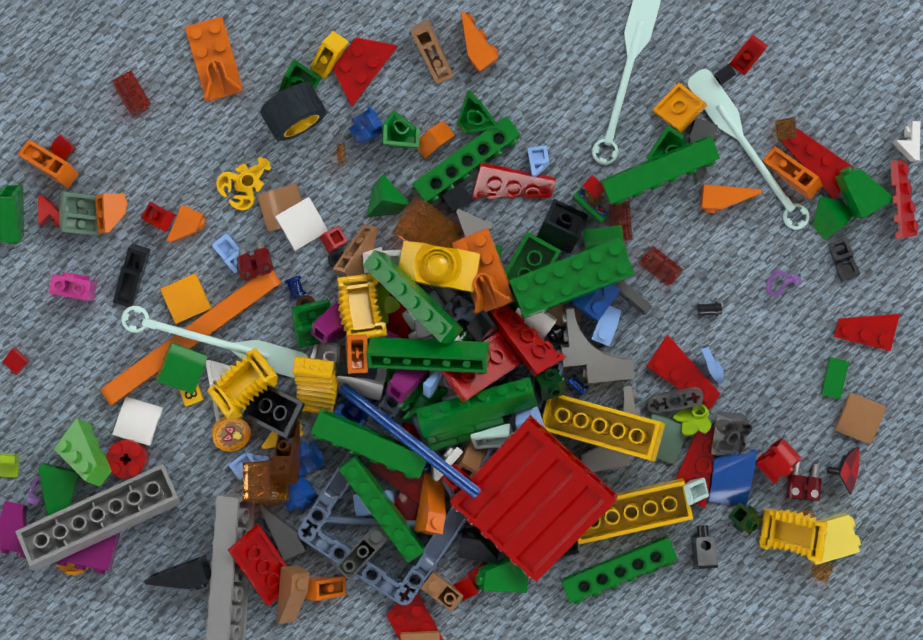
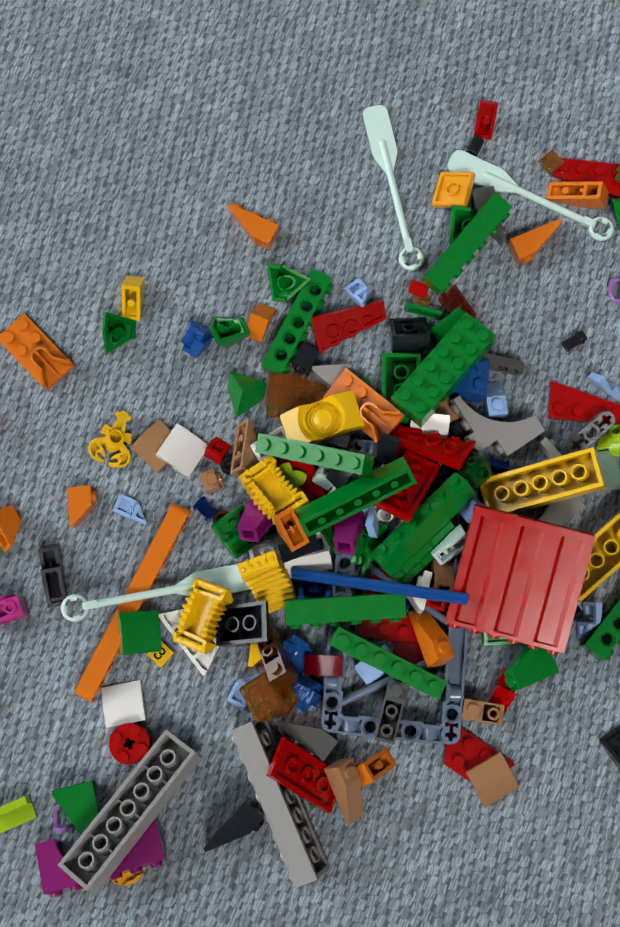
camera: 25 degrees left, 10 degrees down
(83, 454) = (87, 758): bright green wedge -> none
(158, 216) = (52, 510): red slope -> none
(185, 298) = (112, 570): light orange tile -> none
(231, 434) = (214, 669): tile -> none
(254, 264) = (162, 501): dark red piece -> none
(293, 111) = (125, 356): black wheel -> none
(313, 266) = (211, 481): none -> medium nougat brick
(326, 481) = (324, 665): none -> dark red slope
(341, 154) = (186, 373): clear orange tile -> none
(361, 65) = (165, 293): red wing -> none
(432, 51) = (220, 250): medium nougat slope -> none
(477, 547) = (491, 654): black slope -> none
(582, 561) = (591, 618): none -> light blue slope
(660, 266) = (512, 326): clear red hinge -> none

